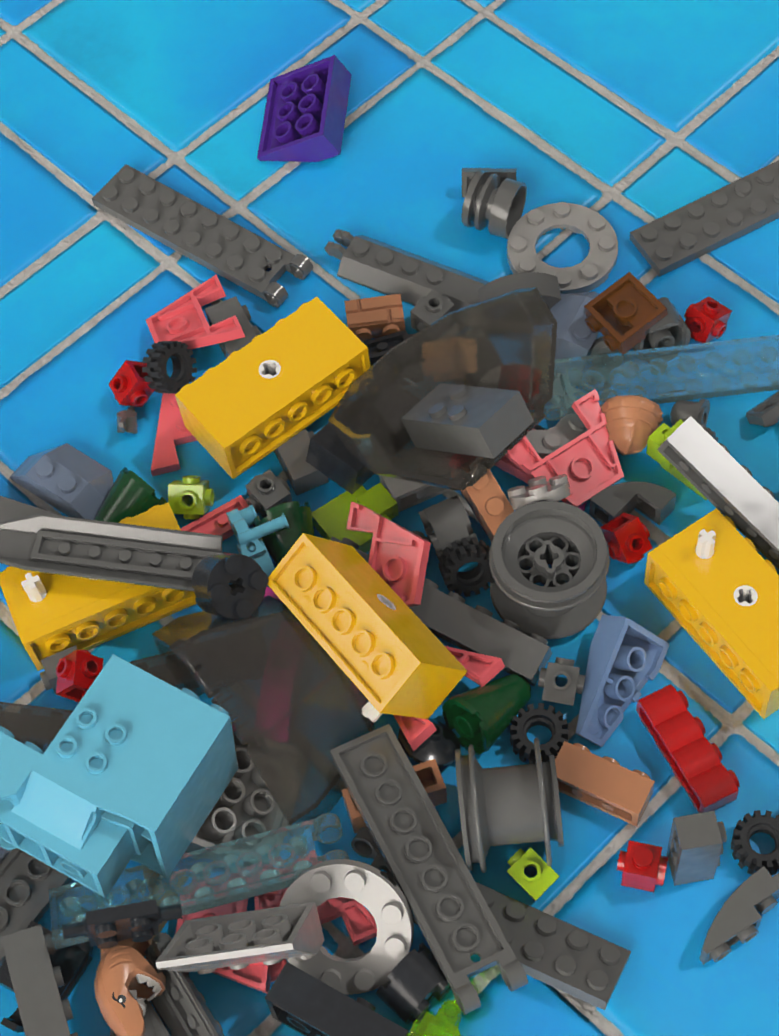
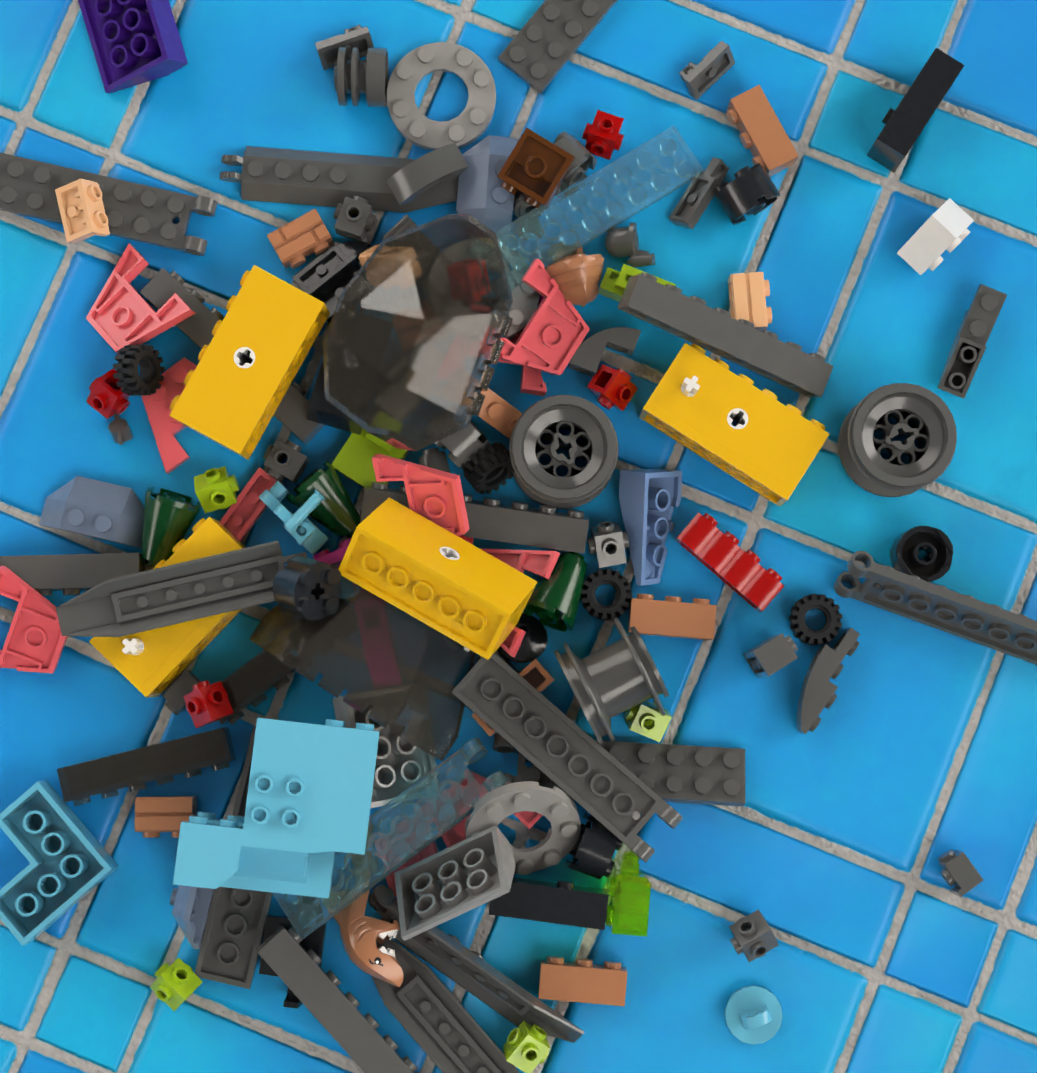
camera: 30 degrees left, 25 degrees up
(123, 922) = (364, 902): black plate -> none
(187, 229) = (82, 210): none -> light nougat bracket
(467, 420) = (445, 346): dark grey brick -> none
(539, 490) = (529, 384): light grey plate -> none
(642, 866) = (730, 677): red brick -> none

